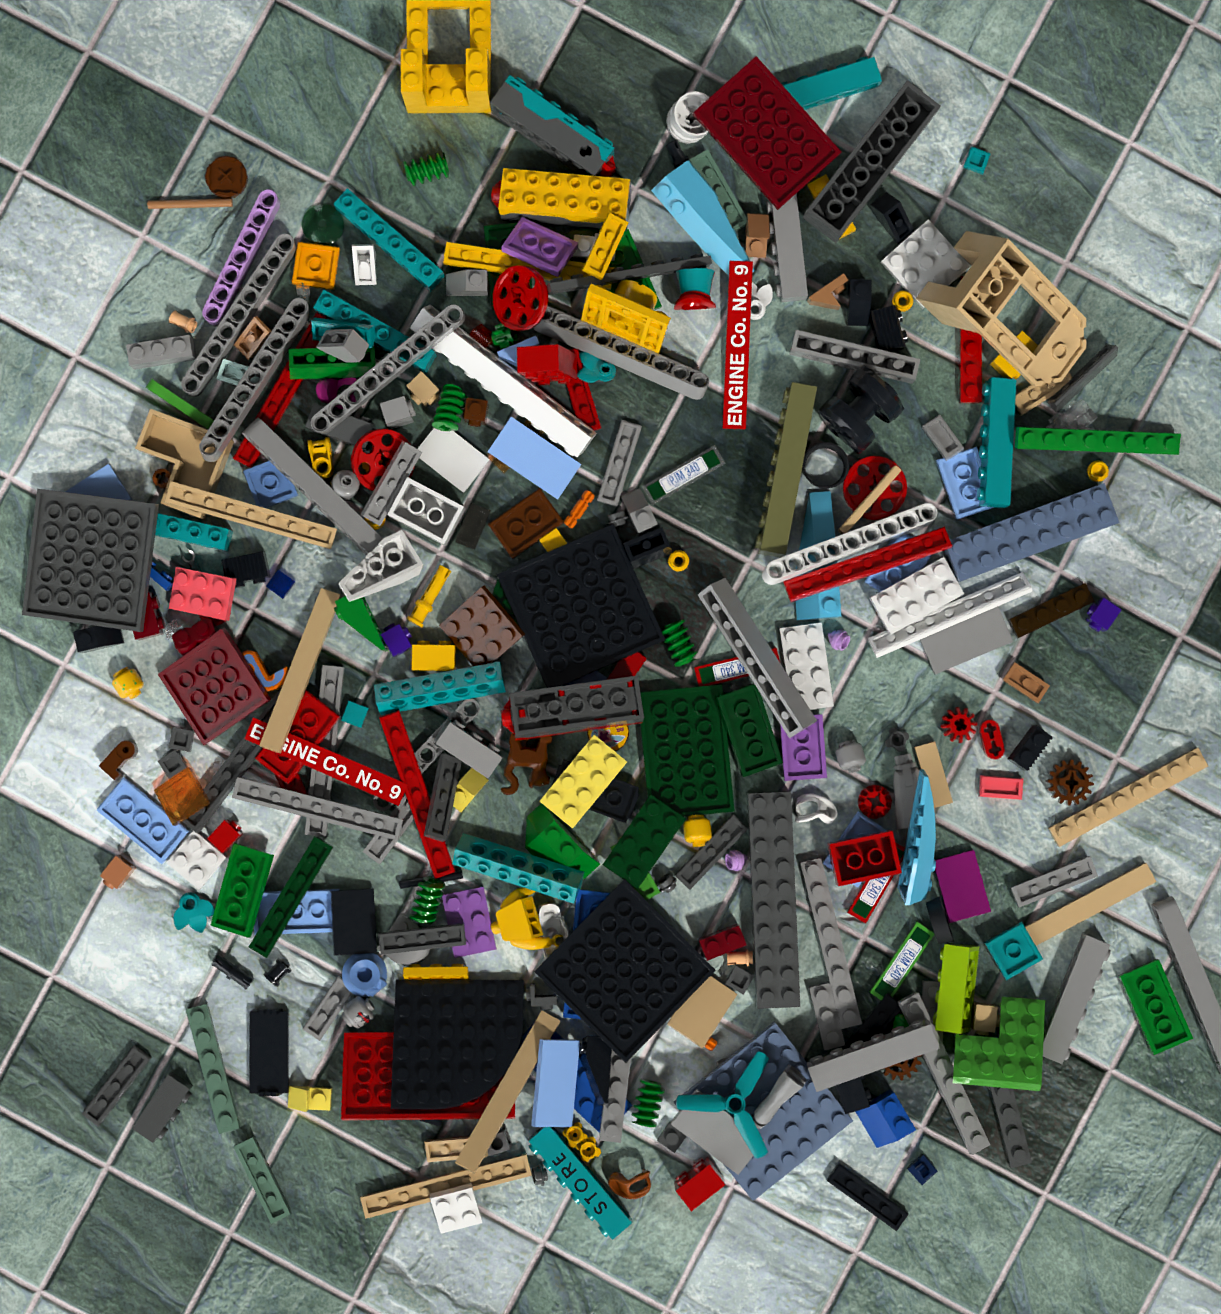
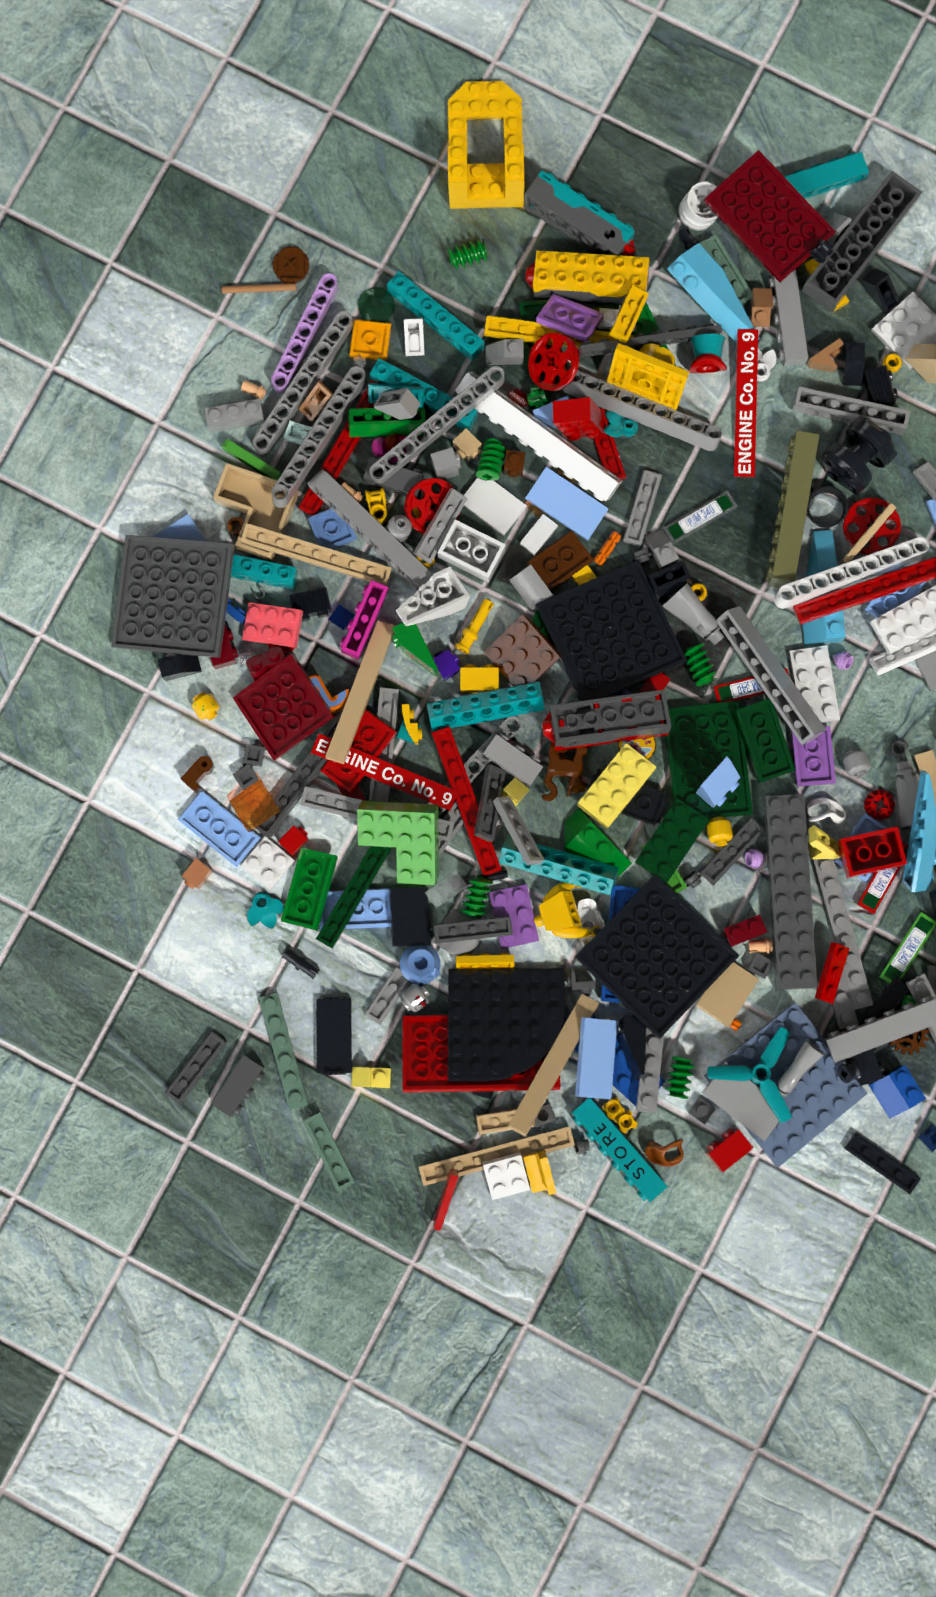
camera: 10 degrees right, 5 degrees down
(277, 972) = (341, 963): black bush -> none
(292, 442) = (356, 495): none -> light nougat pin
(306, 588) = (364, 621): none -> dark pink brick
(338, 385) = (391, 441): none -> clear red plate
(350, 827) = (411, 830): none -> bright green piece
(359, 715) = (414, 732): none -> yellow slope
(389, 1234) = (445, 1199): none -> red tile
(394, 891) = (445, 888): none -> clear slope
(473, 831) = (518, 830): none -> light grey plate
(492, 553) = (530, 587): none -> light grey brick
(493, 1204) = (539, 1172): none -> yellow panel
(502, 492) = (538, 534): none -> white tile
(669, 581) = (690, 610): none -> light grey piece
(696, 781) = (719, 783): none -> light blue slope
(810, 847) = (822, 845): none -> light yellow slope
(816, 990) = (832, 973): none -> red plate
(824, 175) = (821, 251): none -> black wheel
(833, 1099) = (849, 1071): none -> black wheel
(844, 141) = (839, 224): none -> light grey slope

